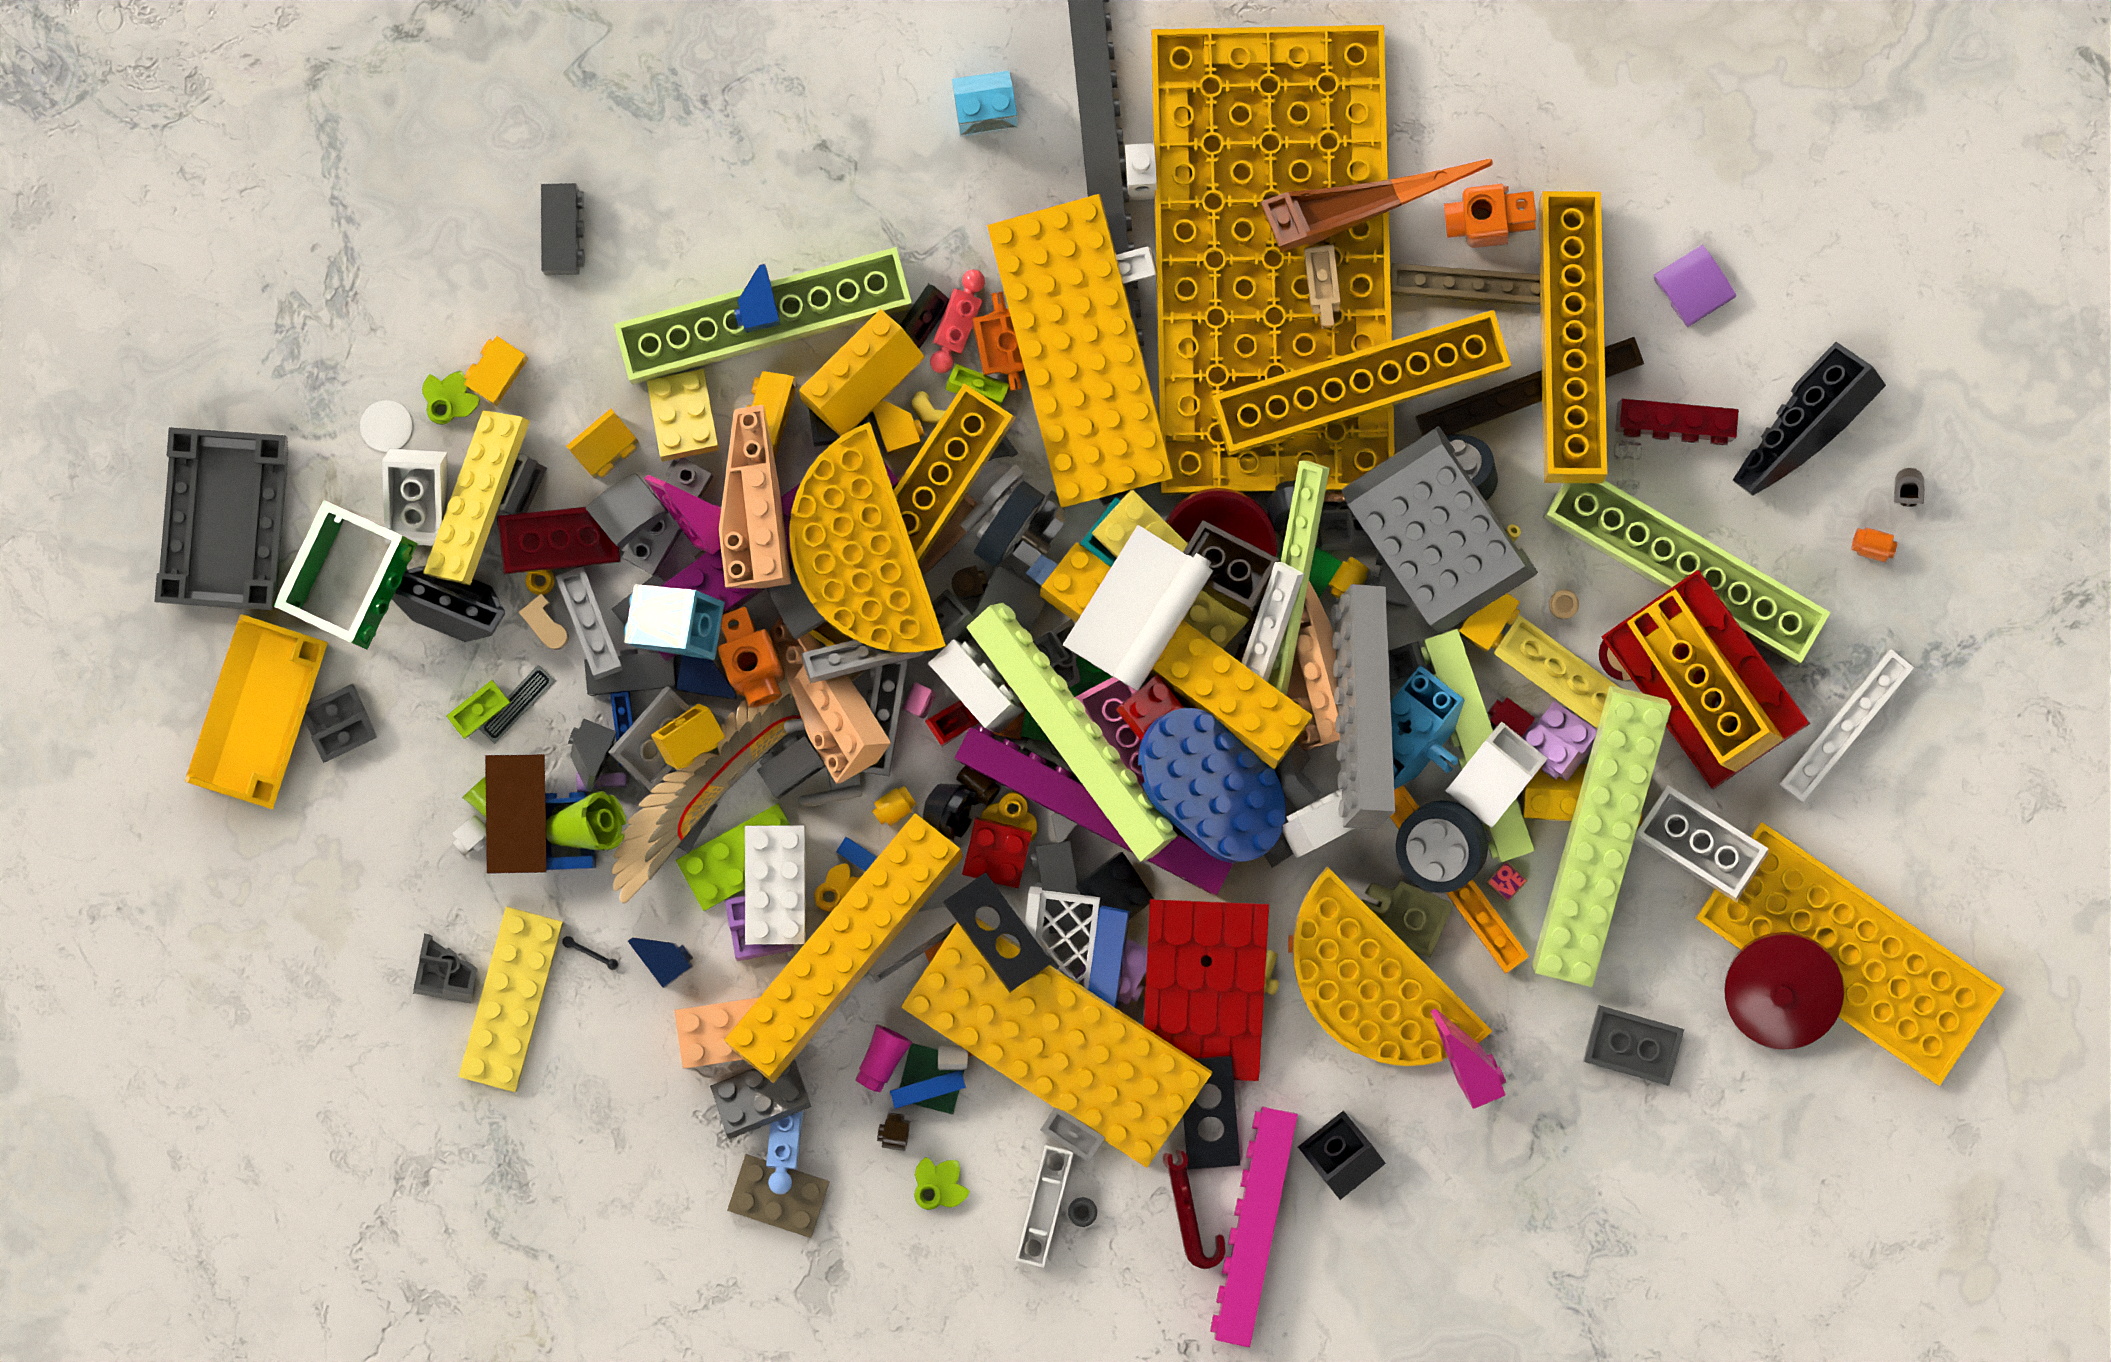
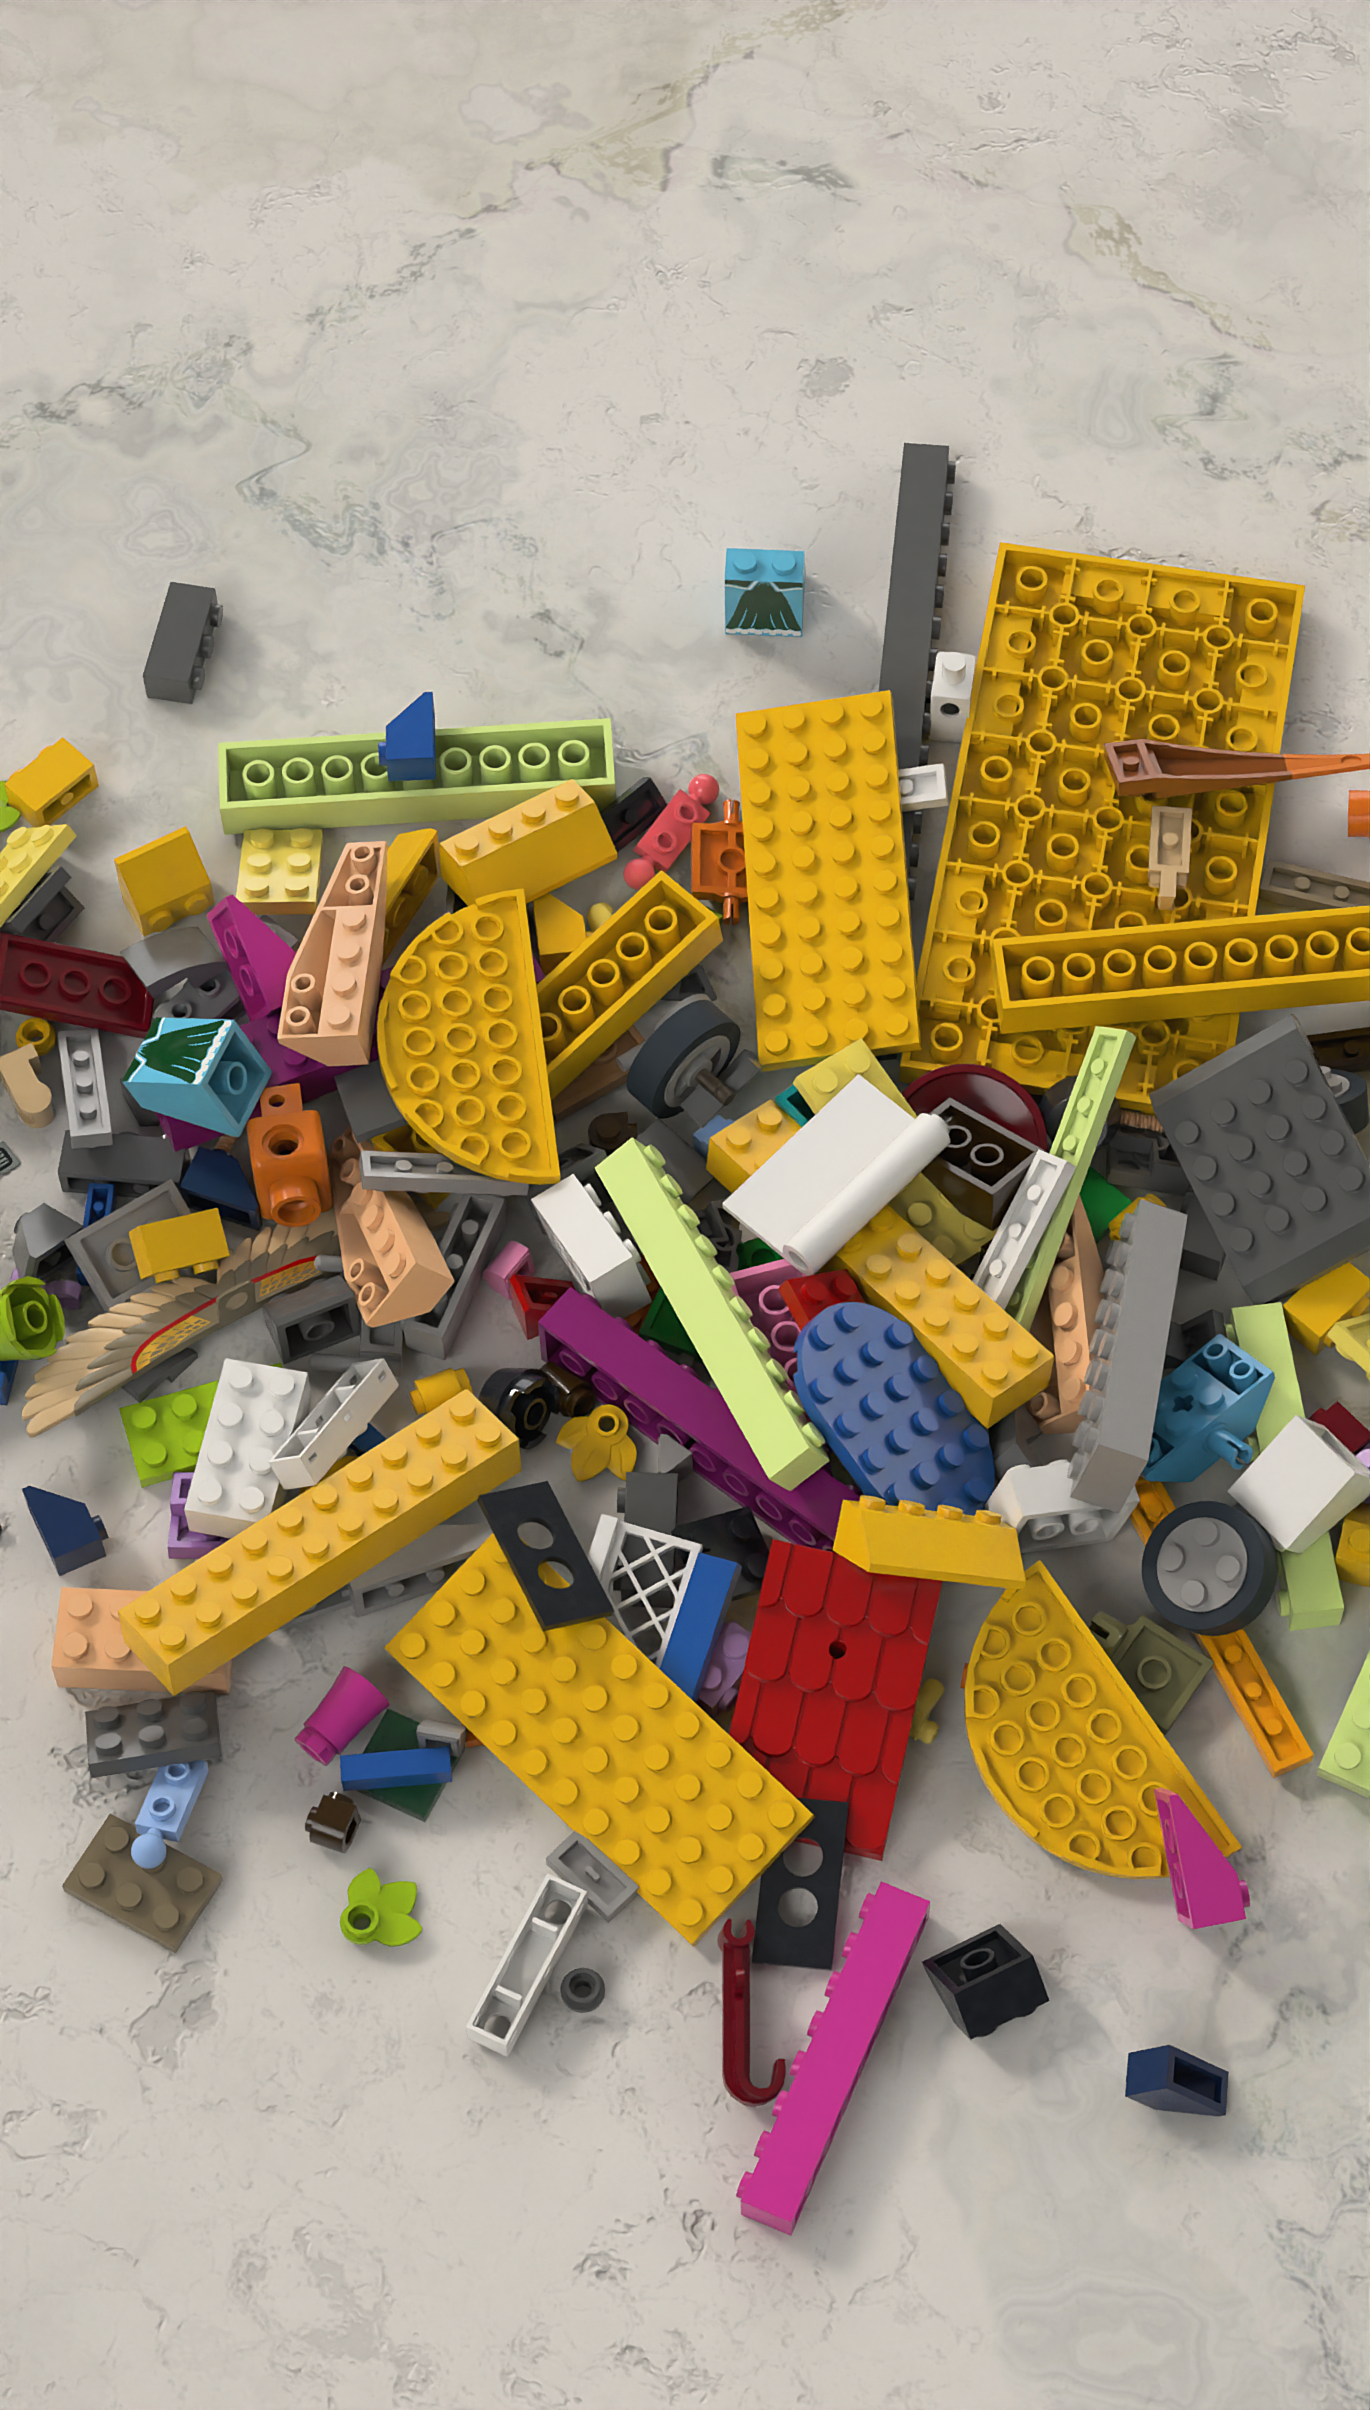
camera: 15 degrees right, 25 degrees down
(835, 846) = (343, 1417): none -> white piece
(998, 851) = (579, 1475): red plate -> none
(1256, 883) = (930, 1543): none -> yellow slope
(1475, 1200) = (1176, 2082): none -> dark blue slope
(1506, 881) = (1297, 1654): tile -> none

